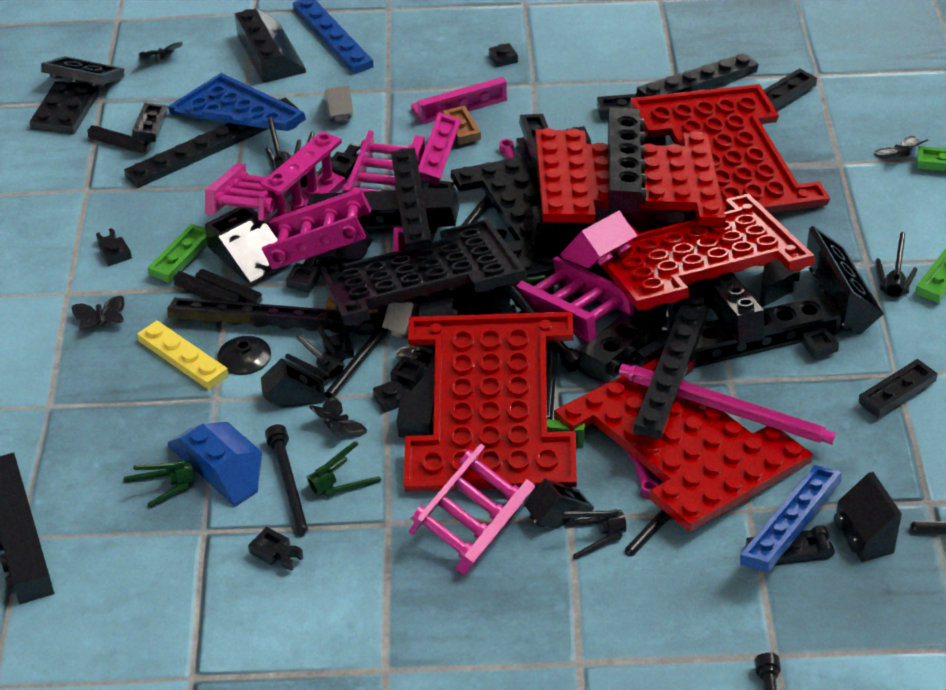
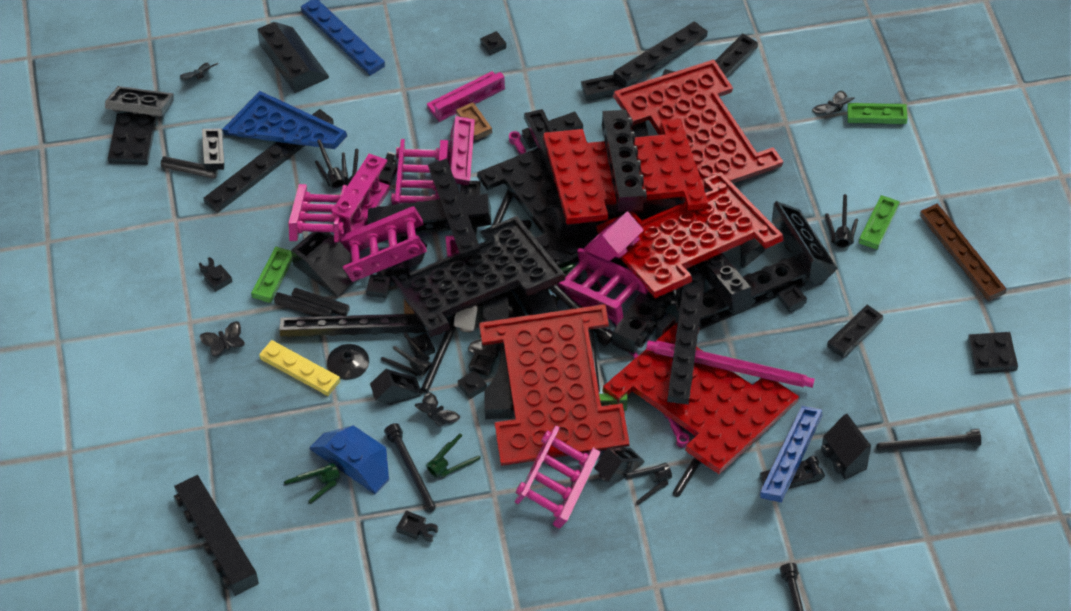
camera: 10 degrees left, 10 degrees up
(338, 103) = (367, 112): light grey slope -> none

